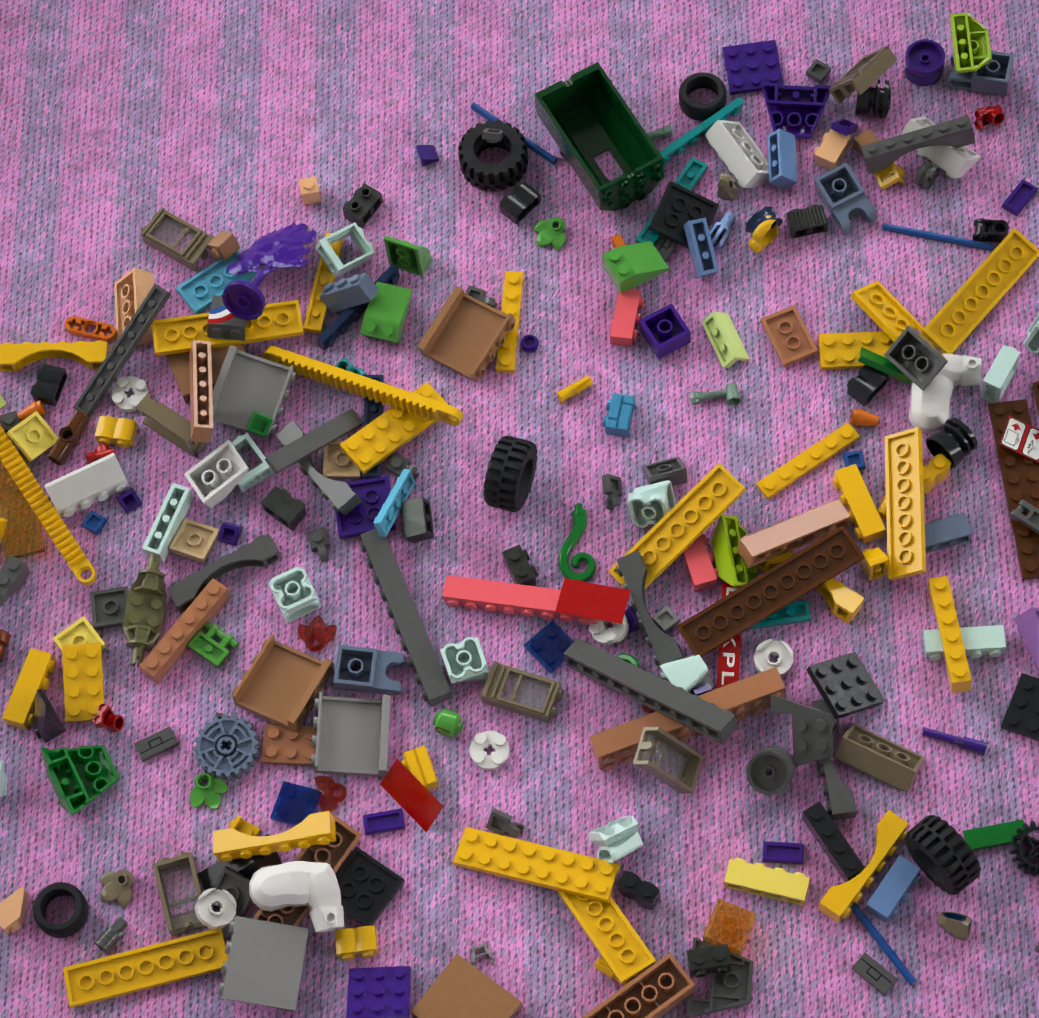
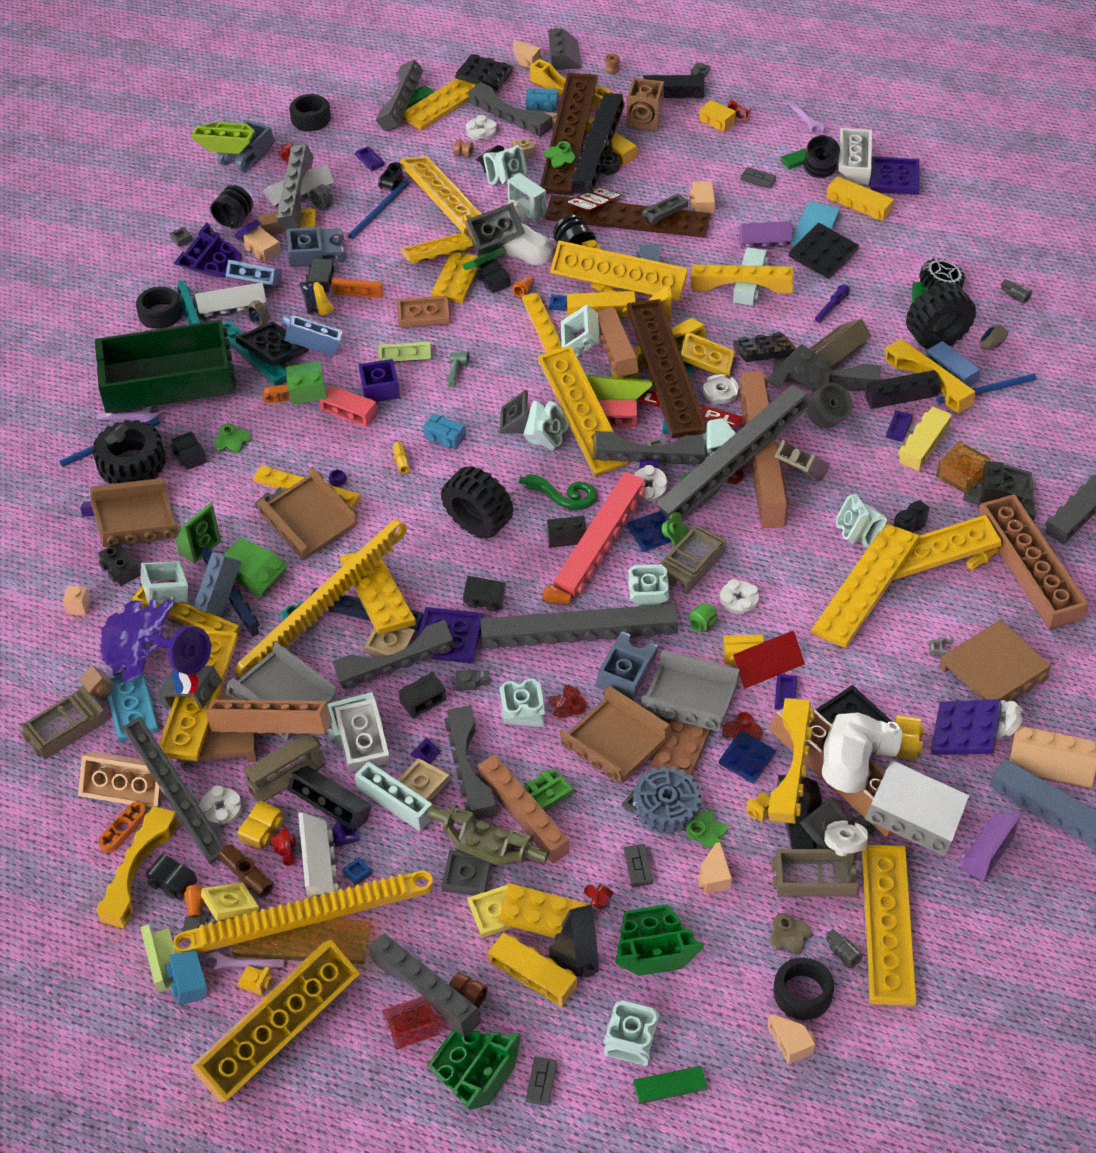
camera: 80 degrees left, 15 degrees down
(154, 473) = (329, 797): none -> black brick
(162, 807) = (714, 872): none -> light nougat slope
(259, 423) = (320, 688): green panel -> none
(313, 441) = (366, 648): dark grey tile -> none
(393, 504) = (464, 603): medium azure plate -> none
(398, 463) = (418, 600): dark grey plate -> none
(422, 192) = (133, 512): none -> medium nougat panel
(437, 581) = (555, 595): none -> orange cone
(501, 824) = (816, 601): dark grey plate -> none
(553, 668) = (675, 528): none -> bright green plate
(593, 601) = (629, 476): red sticker -> none
(613, 488) = (512, 454): dark grey plate -> none
(750, 65) = (147, 272): dark purple plate -> none
(799, 262) = (357, 288): none -> orange tile
(800, 494) = (583, 318): none -> light aqua window
(814, 629) = (706, 354): none -> yellow plate
(863, 74) = (205, 200): dark tan door -> none
(874, 974) = (1021, 396): dark grey tile -> none
(924, 62) = (216, 172): dark purple wheel -> none

